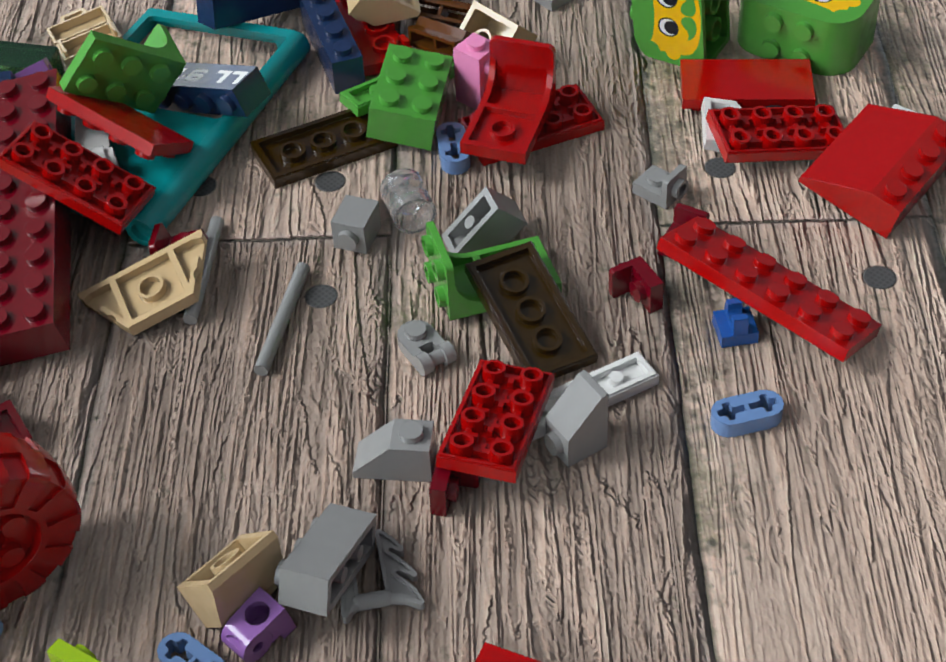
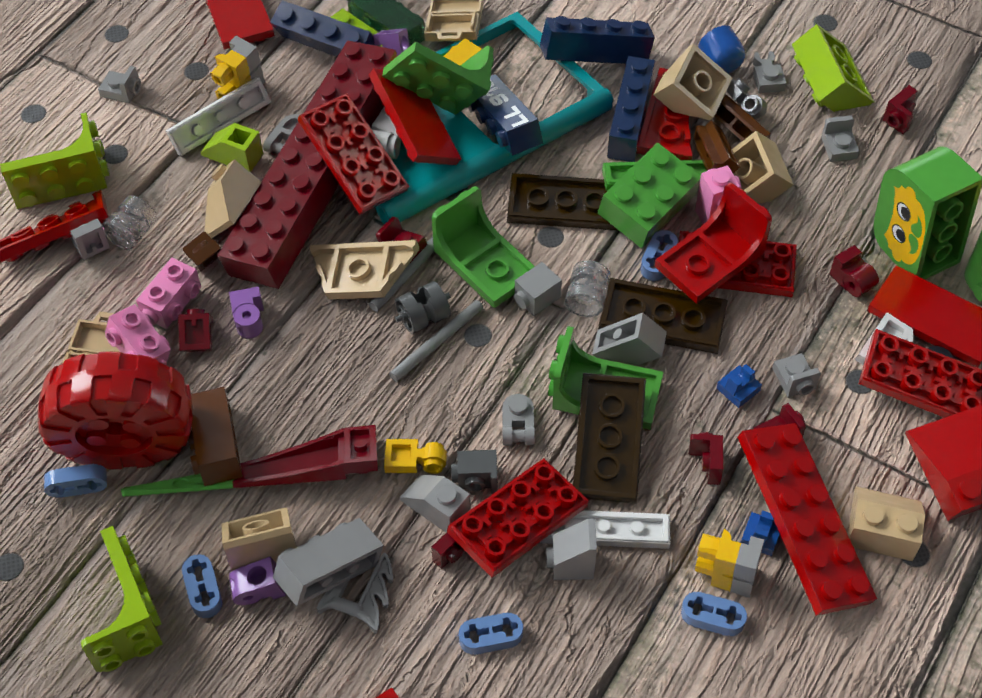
camera: 30 degrees right, 10 degrees up
(49, 384) = (245, 310): none -> medium lavender leg
(112, 515) = (214, 438): none -> reddish brown brick
(244, 473) = (315, 461): none -> dark red plate
(248, 291) = (425, 306): none -> dark grey wheel
(266, 221) = (476, 249): none -> bright green bracket
(332, 431) = (405, 455): none -> yellow plate
(420, 401) = (476, 470): none -> dark grey brick
(532, 186) = (686, 323): none -> dark brown tile
(541, 540) = (490, 633): none -> medium blue beam
(616, 216) = (739, 385): none -> blue tile
(647, 83) = (853, 272): none -> dark red leg
(733, 355) = (729, 562): none -> hips
(843, 262) = (886, 524): none -> tan slope

